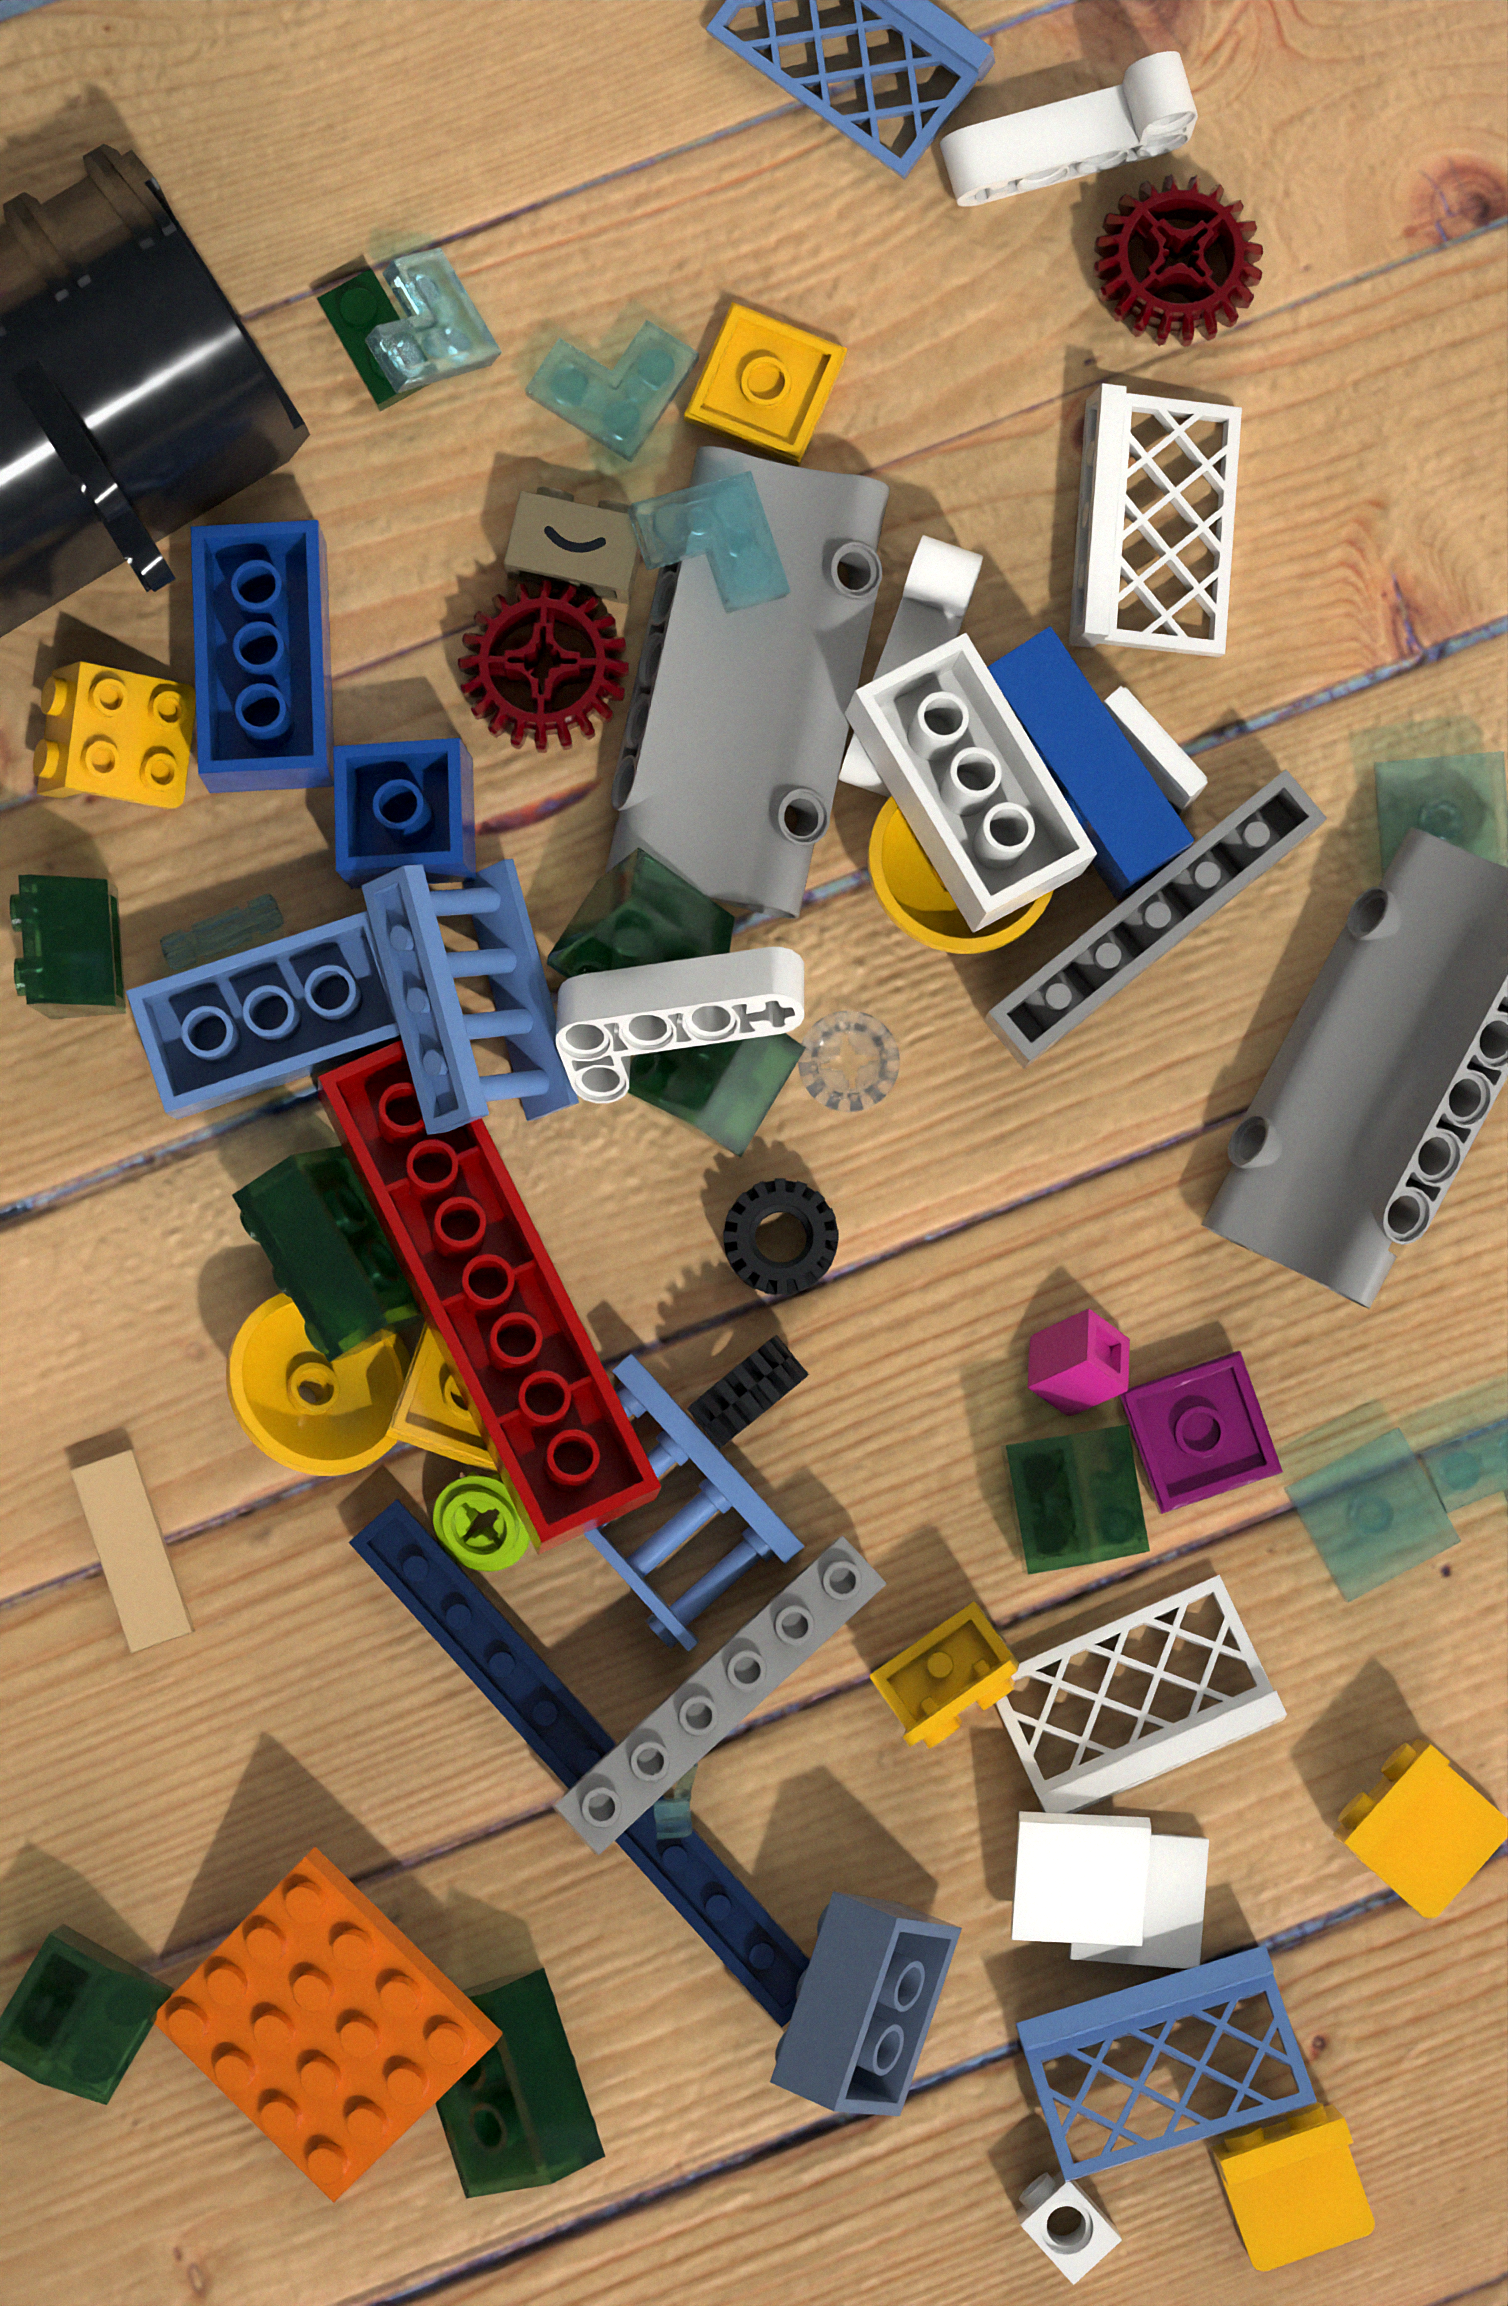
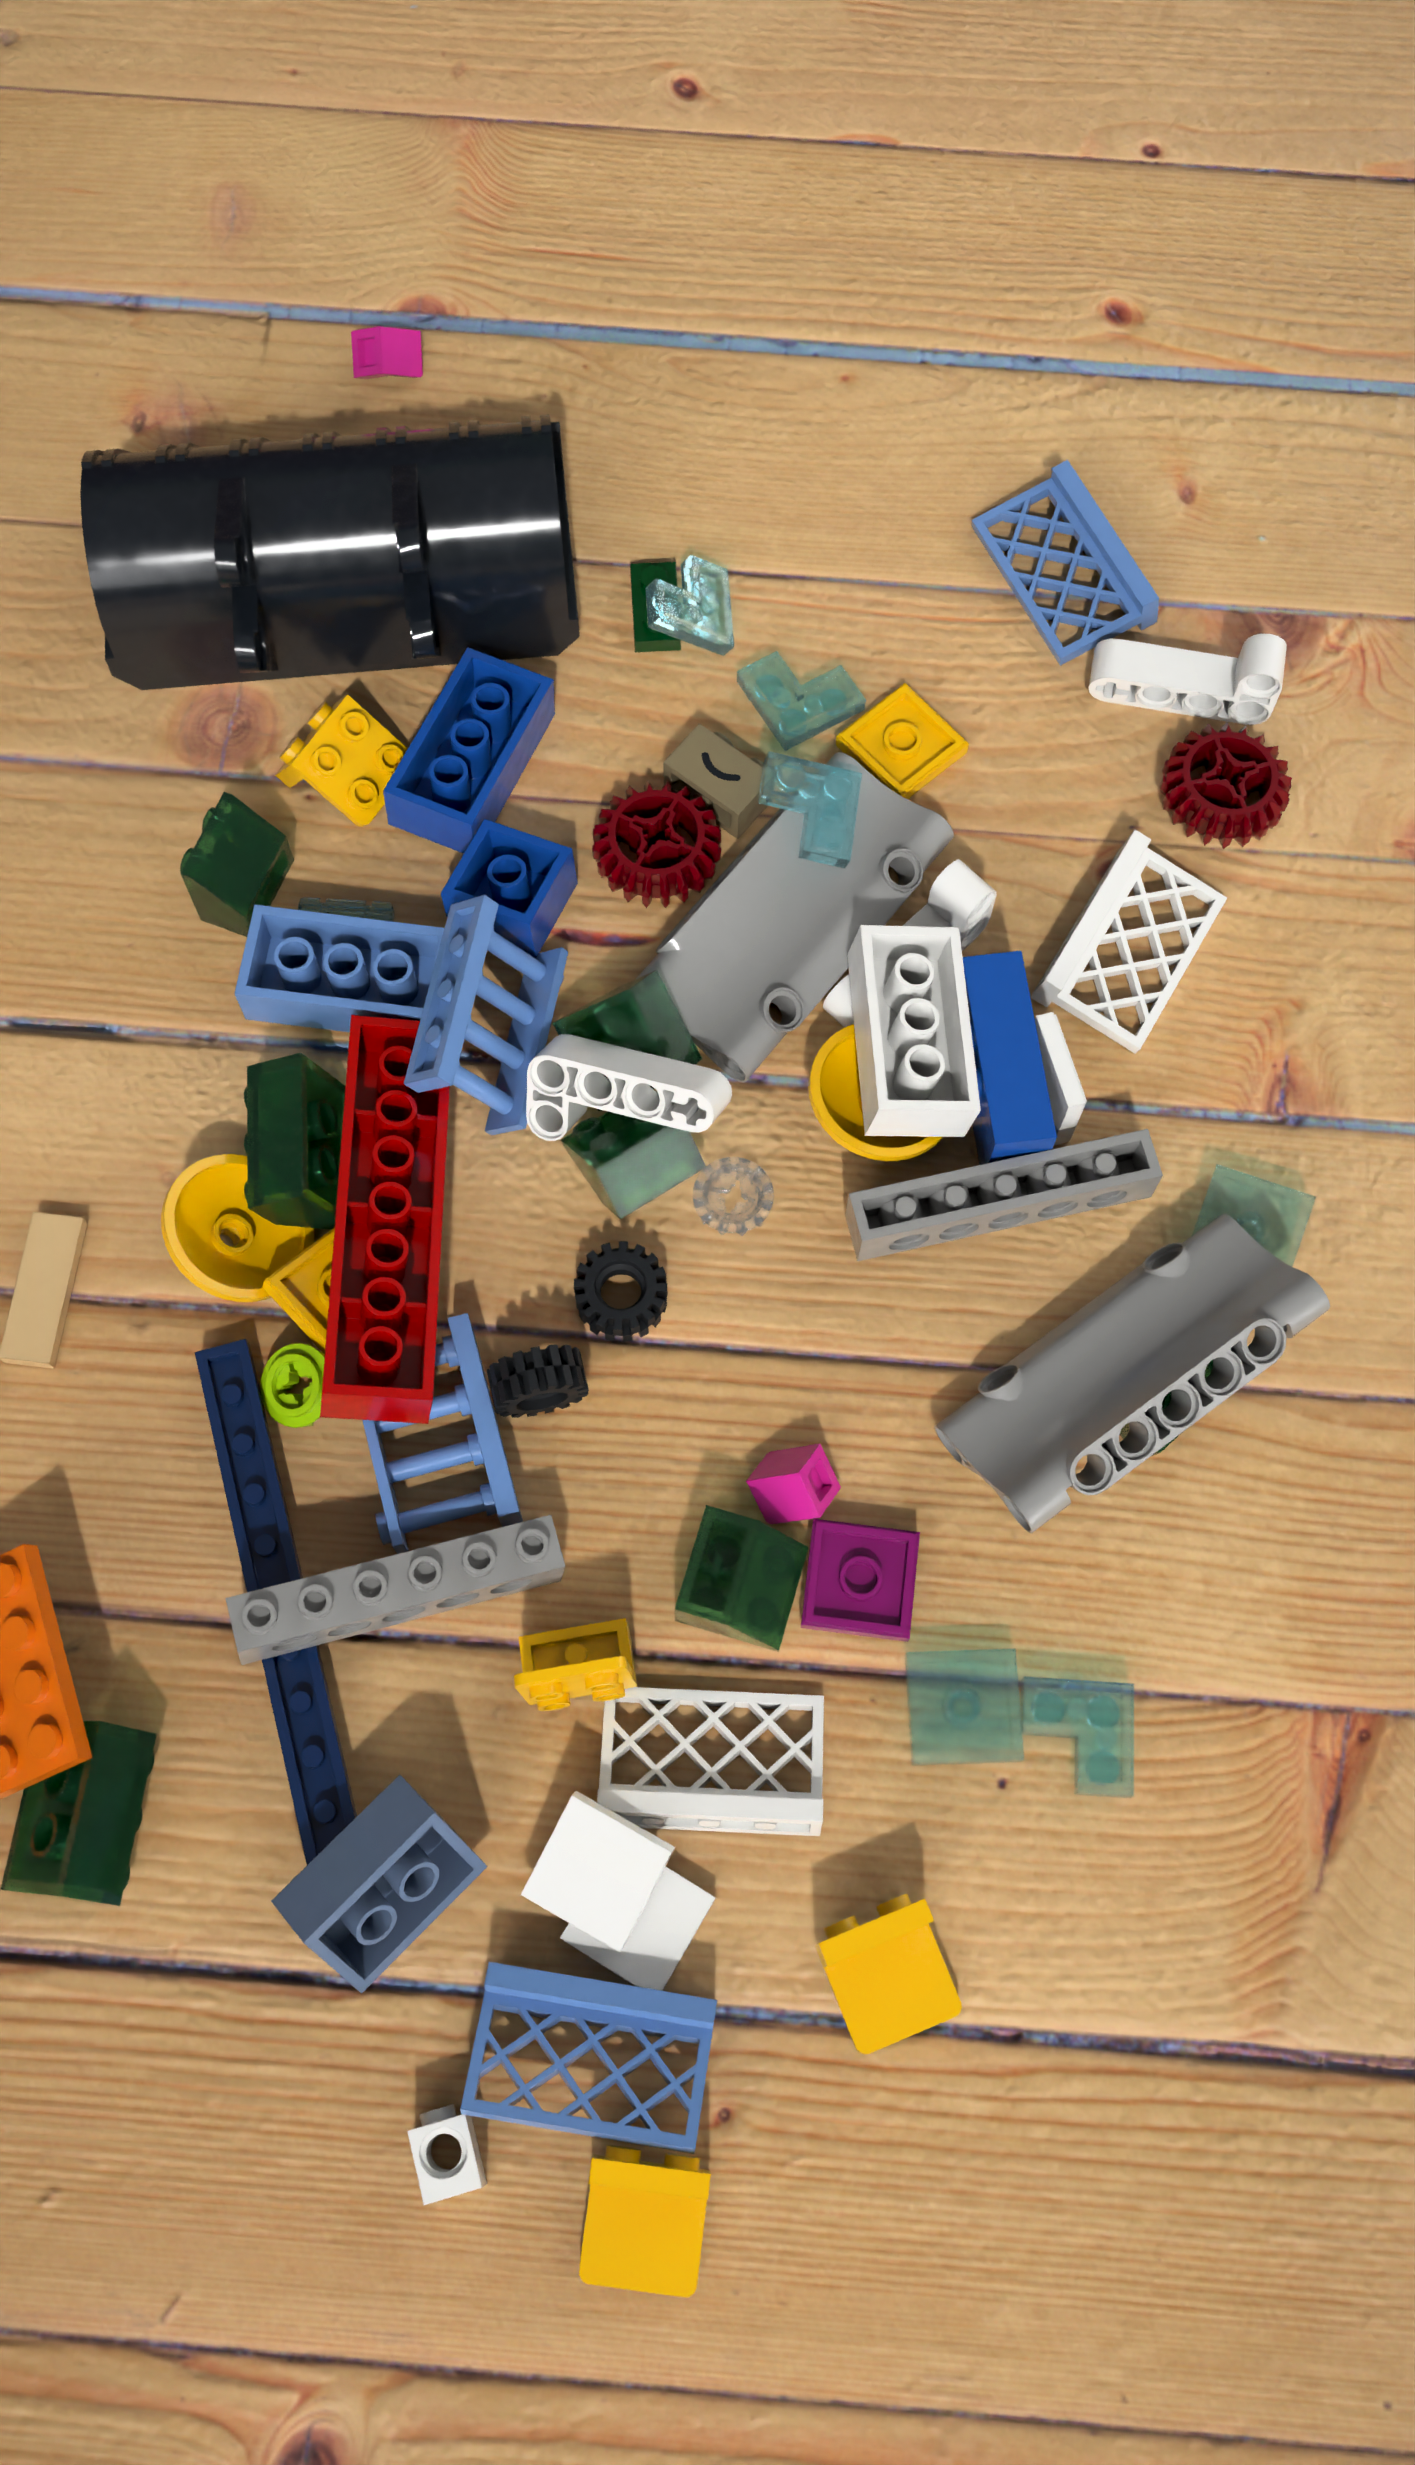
camera: 25 degrees right, 15 degrees down
(674, 1814) = (318, 1665): clear light blue hand -> none

